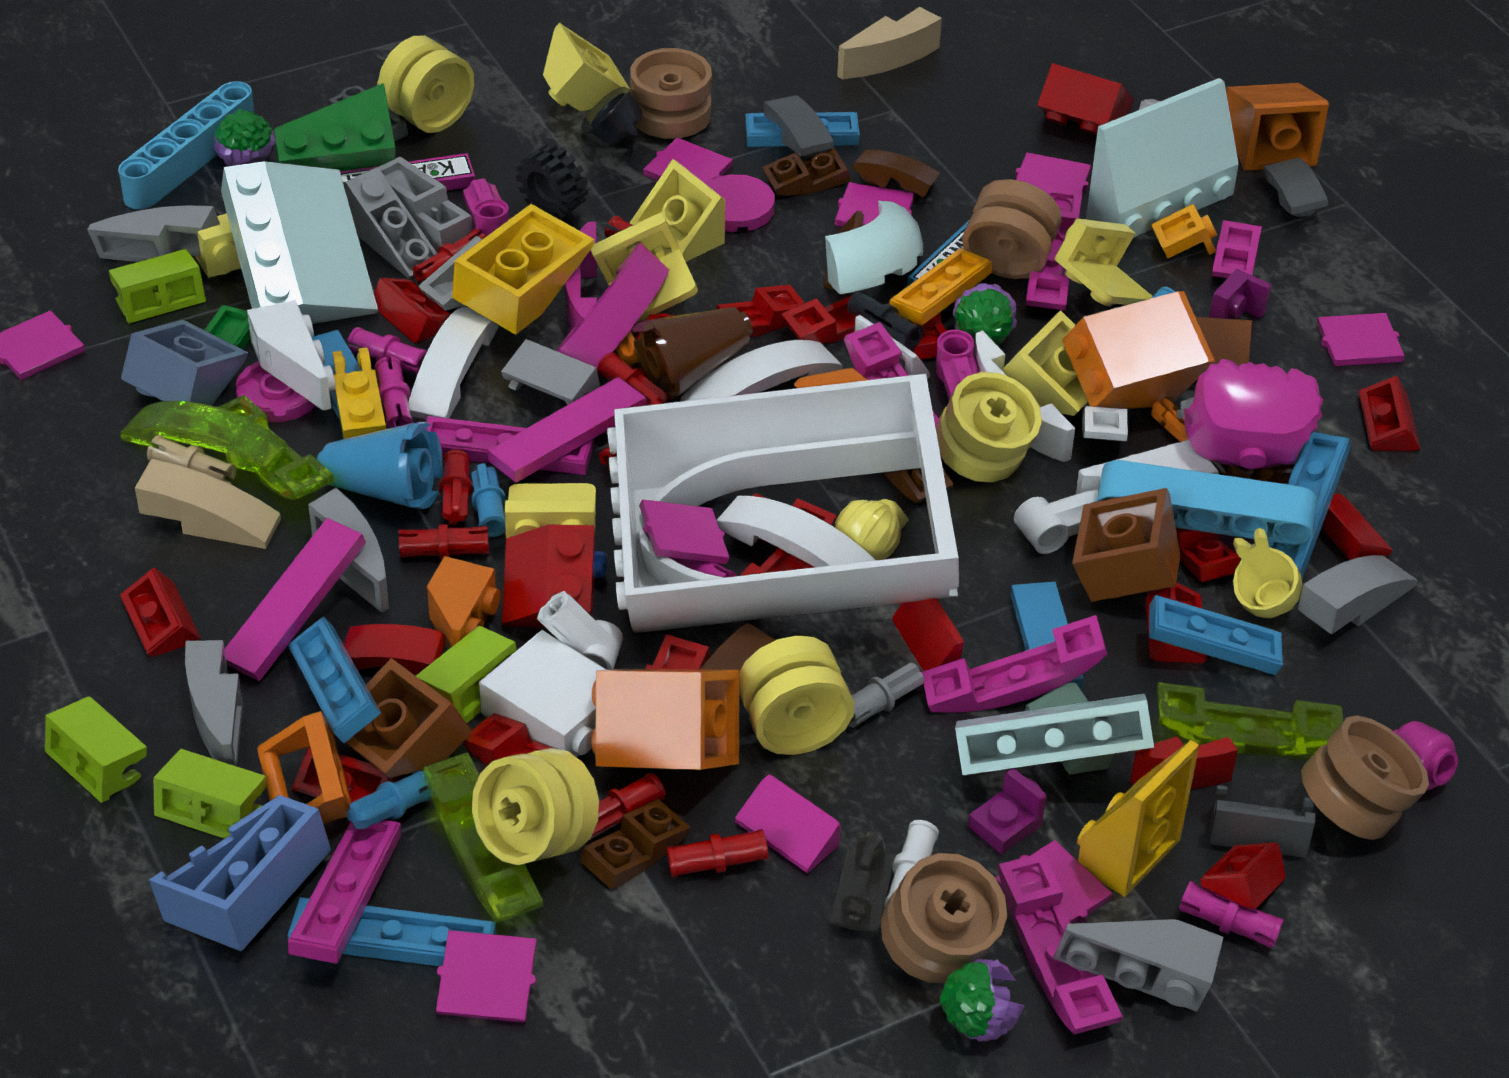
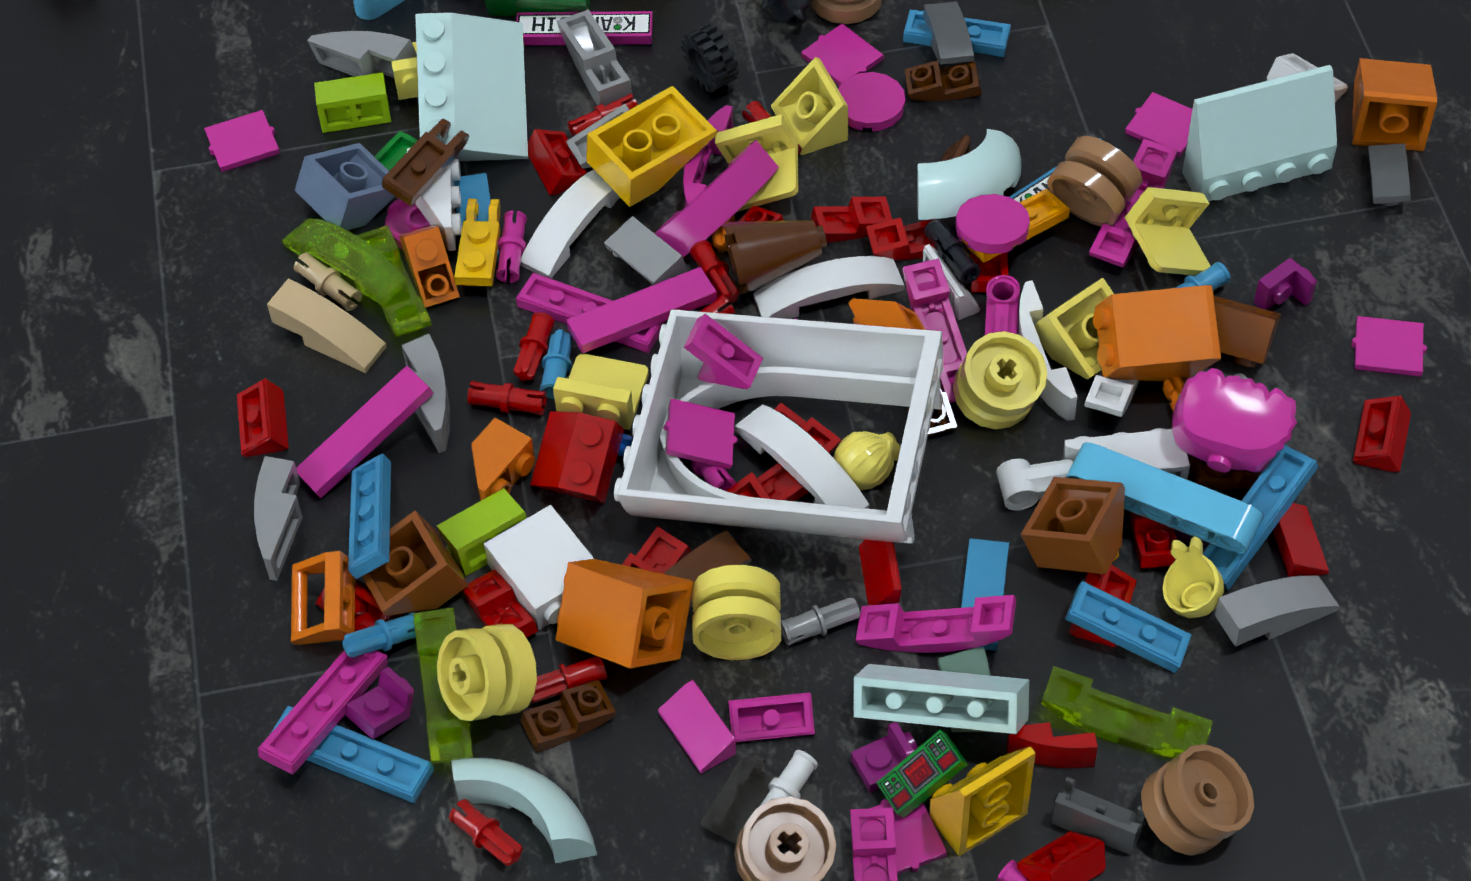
camera: 20 degrees right, 10 degrees up
(93, 747) = (171, 534): lime hinge -> none
(205, 793) = (245, 597): lime hinge -> none
(246, 876) = (250, 679): medium blue wedge -> none
(276, 317) = (423, 163): none -> reddish brown hinge
(302, 418) = (429, 265): none -> orange slope
(386, 223) = (558, 72): light grey slope -> none
(387, 347) = (518, 199): dark pink pin -> none
(388, 464) = (481, 318): dark azure cone -> none
(406, 644) = (435, 491): red slope -> none
(418, 872) = (382, 706): none -> magenta bracket
(485, 206) = (647, 72): dark pink piece -> none
(486, 976) = (409, 810): dark pink piece -> none
(577, 629) = (591, 522): white piece -> none
(587, 980) = (486, 833): none -> red axle
(606, 924) = (532, 793): none -> light aqua brick
(687, 447) = (723, 355): none -> dark pink slope
(717, 853) = (629, 741): red pin -> none
(865, 199) = (993, 116): dark pink piece -> none
(867, 797) = (771, 717): none -> dark pink slope
(880, 167) = (1034, 98): reddish brown slope -> none
(921, 283) = (992, 223): none -> dark pink tile
(986, 310) = (1044, 261): green piece -> none
(1061, 813) = (922, 773): none -> tile
(1082, 99) = (1223, 48): red slope -> none
(1184, 231) = (1264, 204): light orange bracket -> none
(1236, 248) = (1307, 233): dark pink slope -> none
(1434, 750) = (1271, 784): dark pink head -> none

